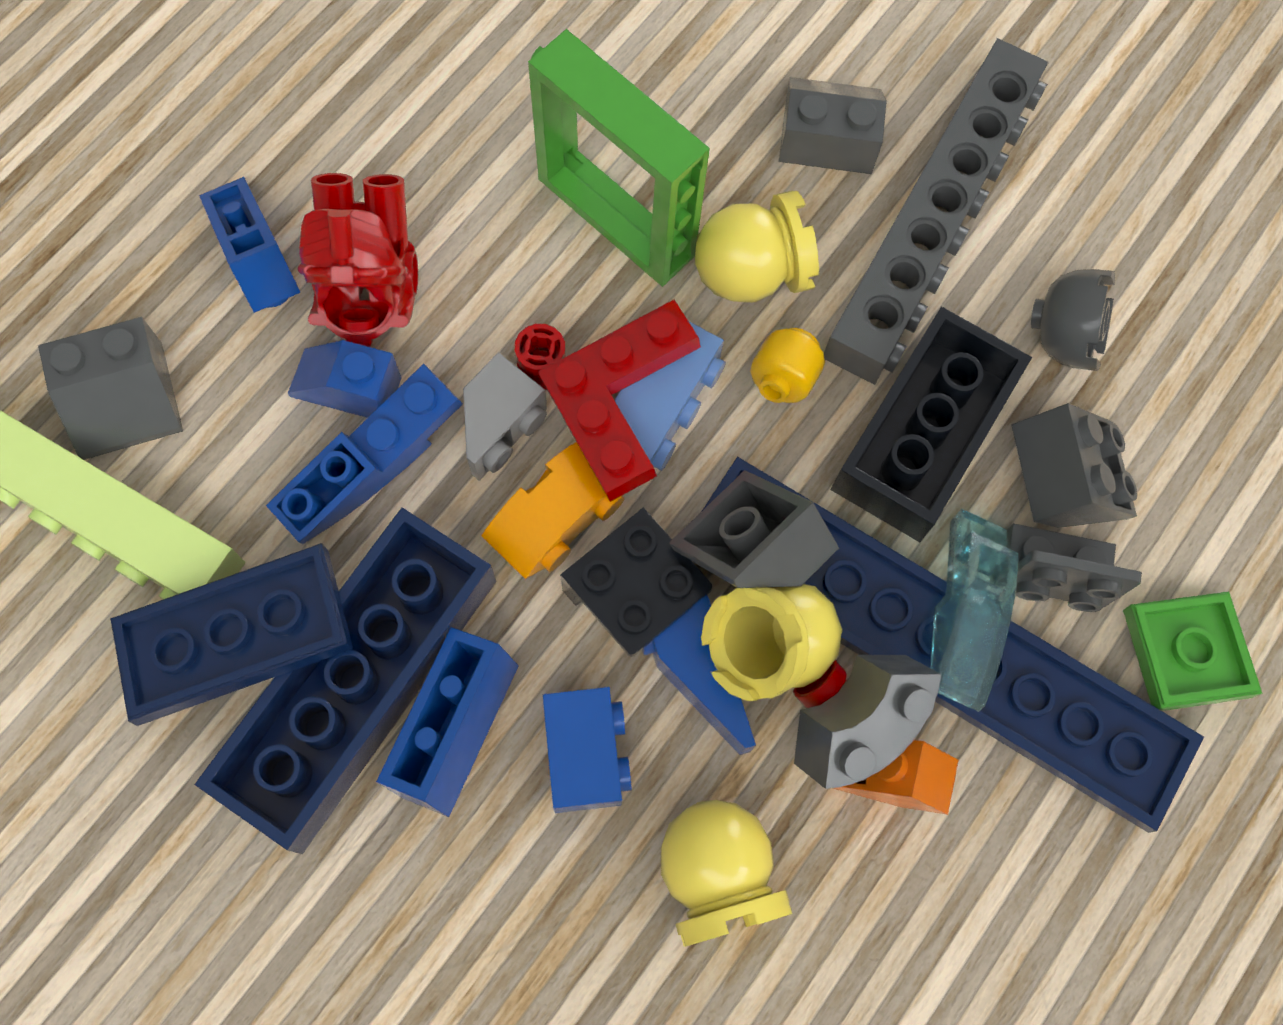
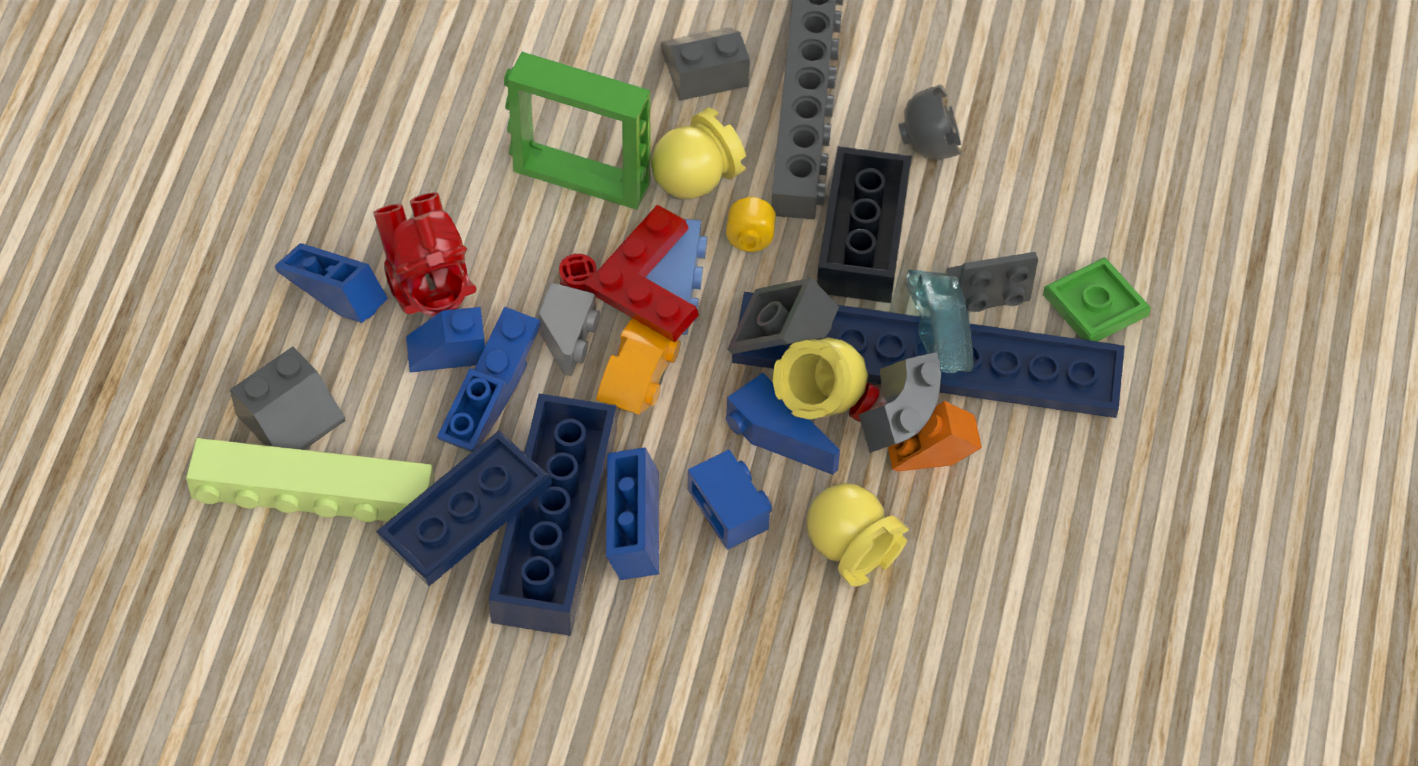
camera: 20 degrees left, 15 degrees down
(635, 583) = (713, 386): black bracket -> none
(1074, 468) = (971, 218): dark grey slope -> none

